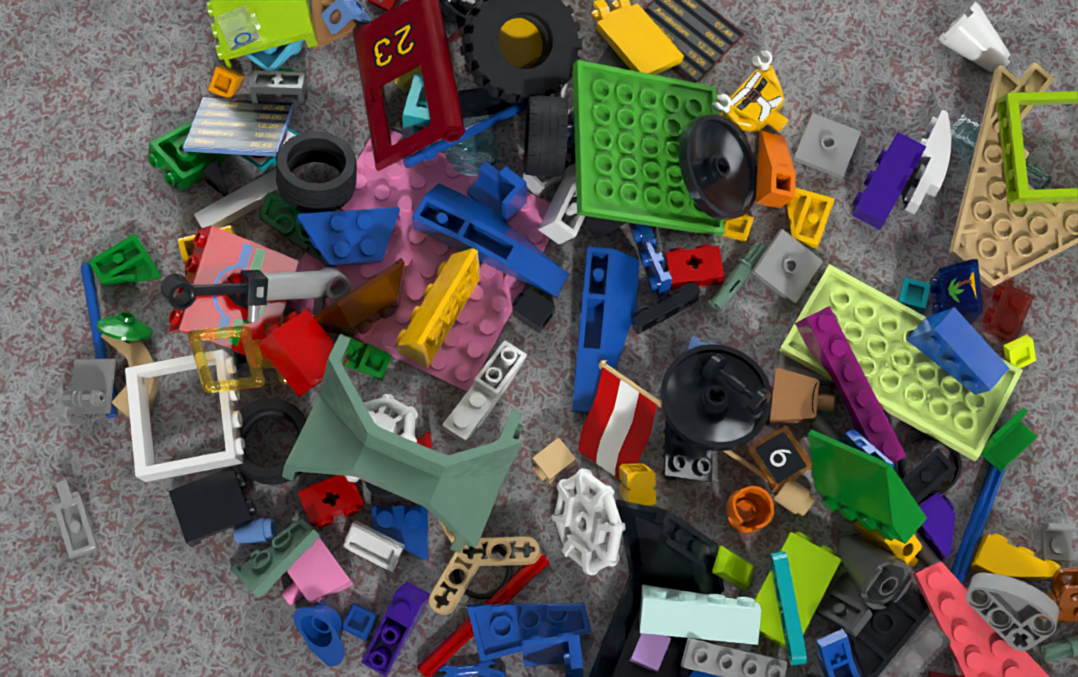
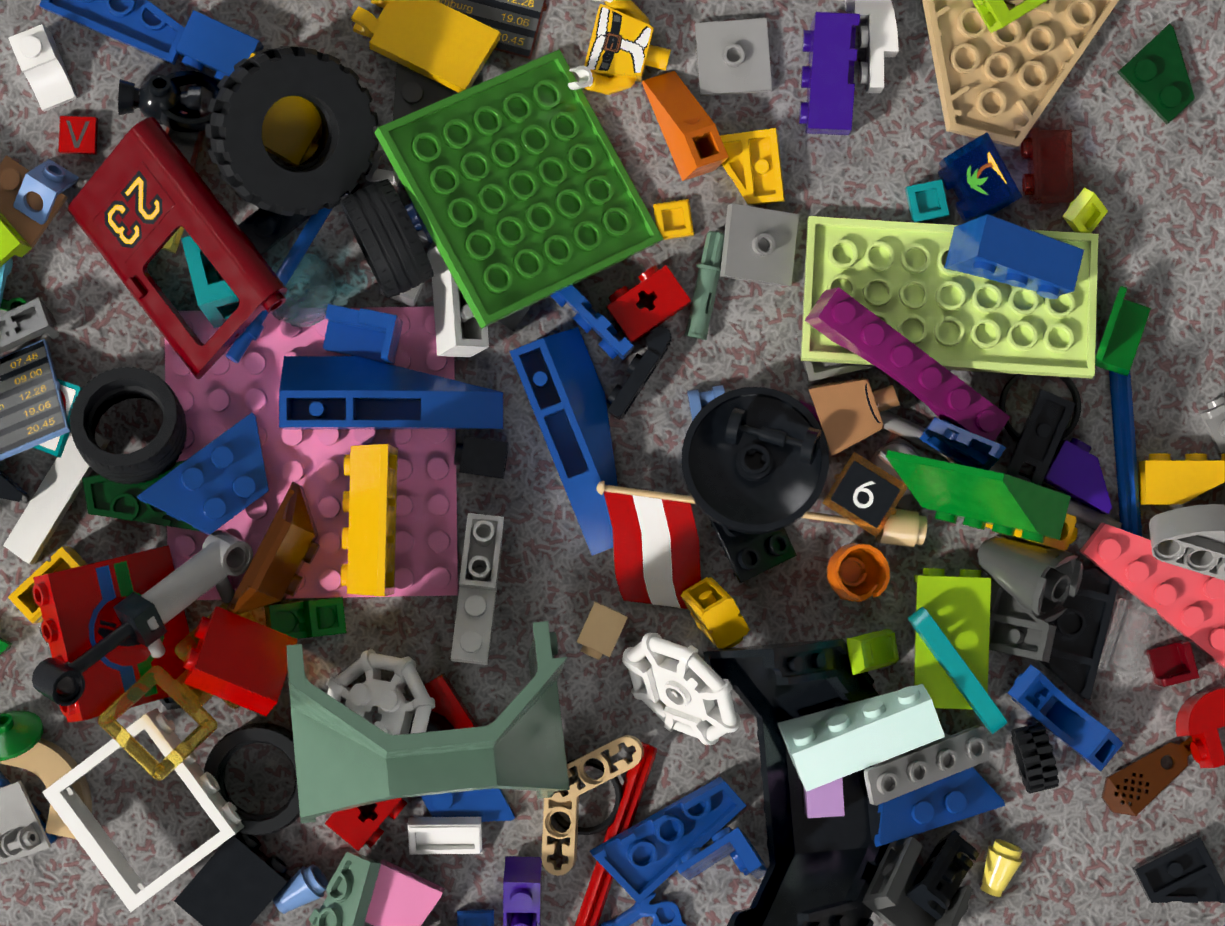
camera: 30 degrees left, 15 degrees up
(718, 167) = (617, 167): black dish -> none

